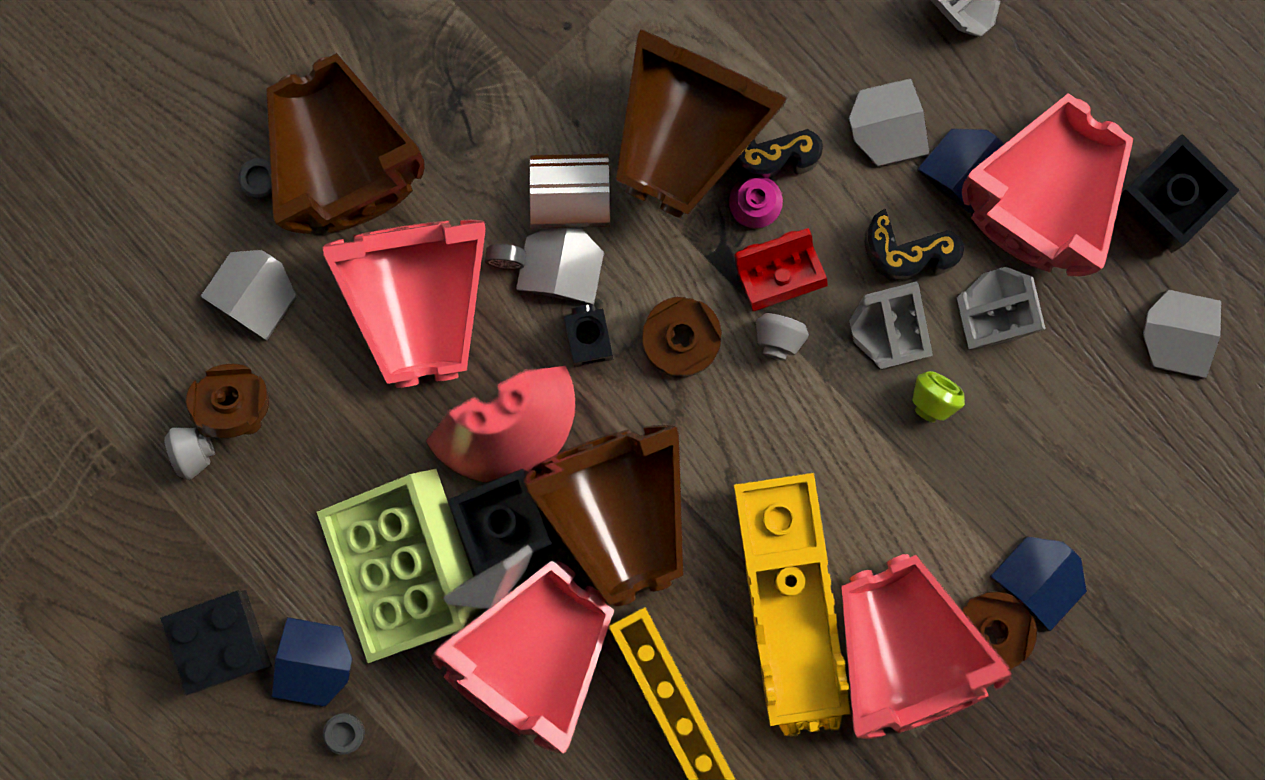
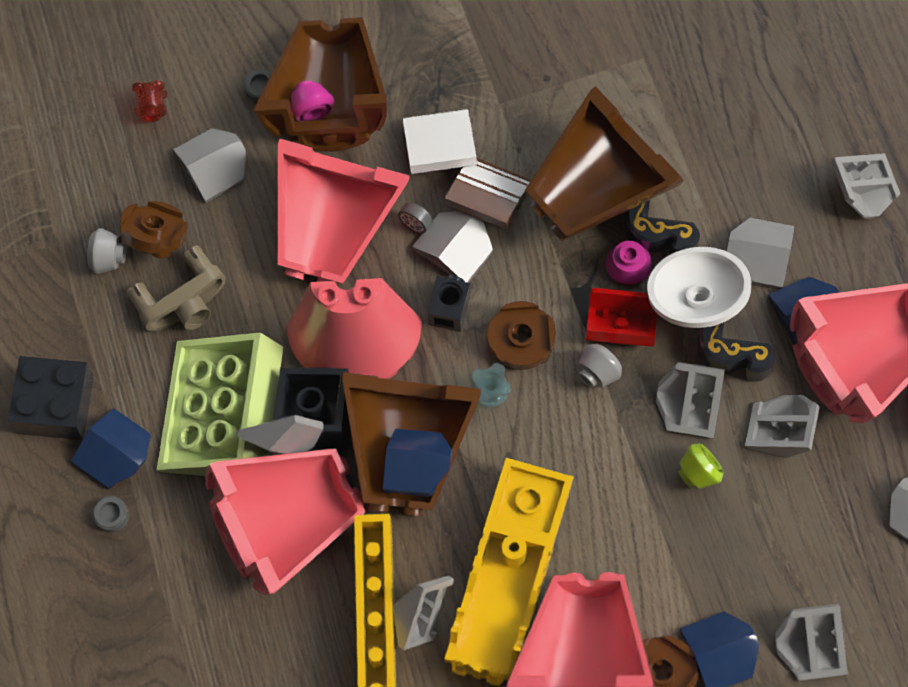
camera: 30 degrees right, 15 degrees down
(147, 254) = (150, 100): none -> clear red brick
(306, 468) = (184, 303): none -> dark tan connector
(327, 177) = (310, 101): none -> dark pink cone
(489, 156) = (439, 141): none -> white tile
(642, 532) = (415, 462): none -> dark blue slope
(678, 396) = (492, 377): none -> clear light blue brick
(722, 697) = (418, 611): none -> light grey slope
(848, 184) = (699, 287): none -> white dish
(1133, 530) = (813, 642): none -> light grey slope

